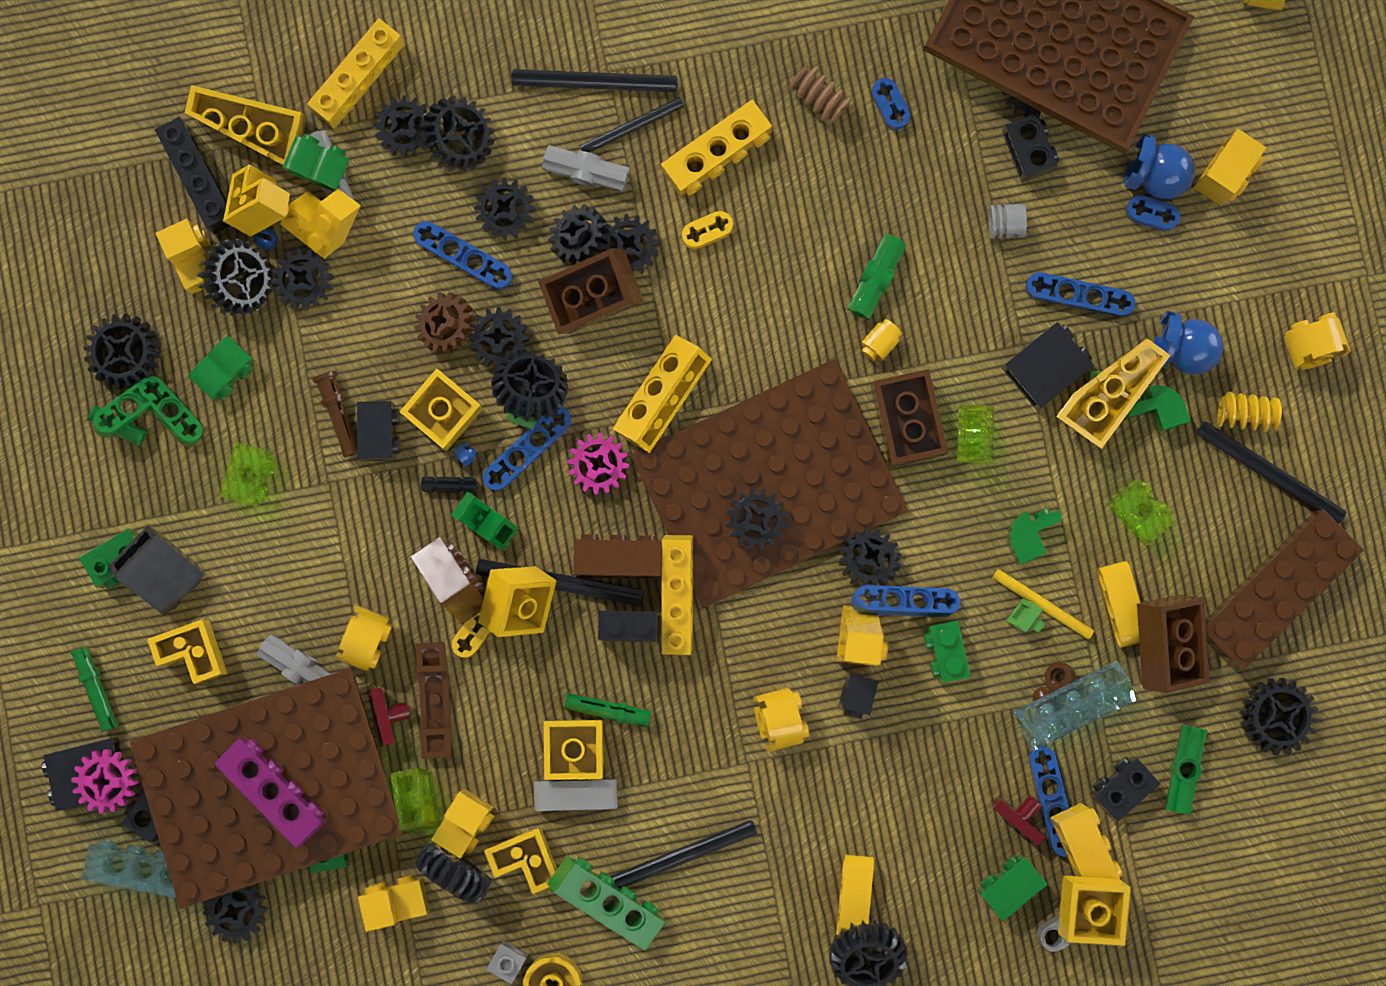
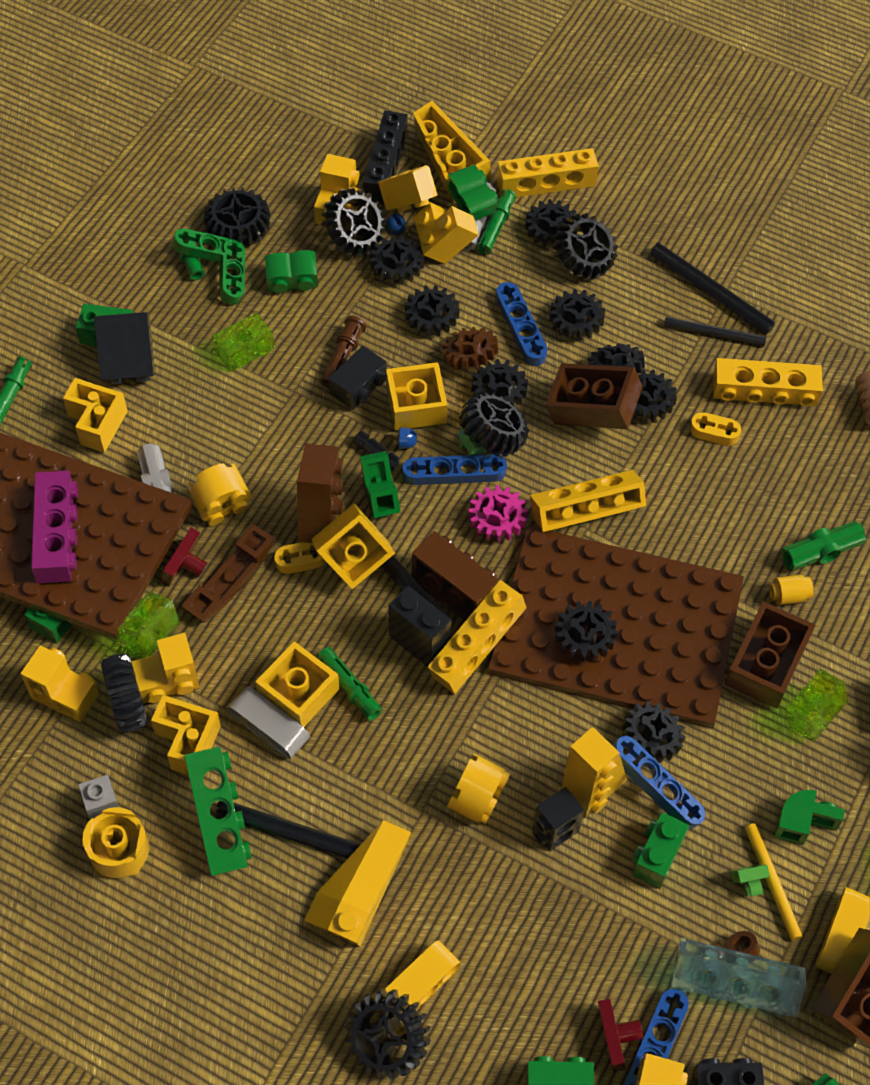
camera: 40 degrees right, 25 degrees down
(355, 168) = (496, 222): none -> green pin
(371, 317) = (432, 310): none -> black gear
(585, 168) = (658, 331): light grey piece -> none
(754, 873) = (355, 890): none -> yellow wedge

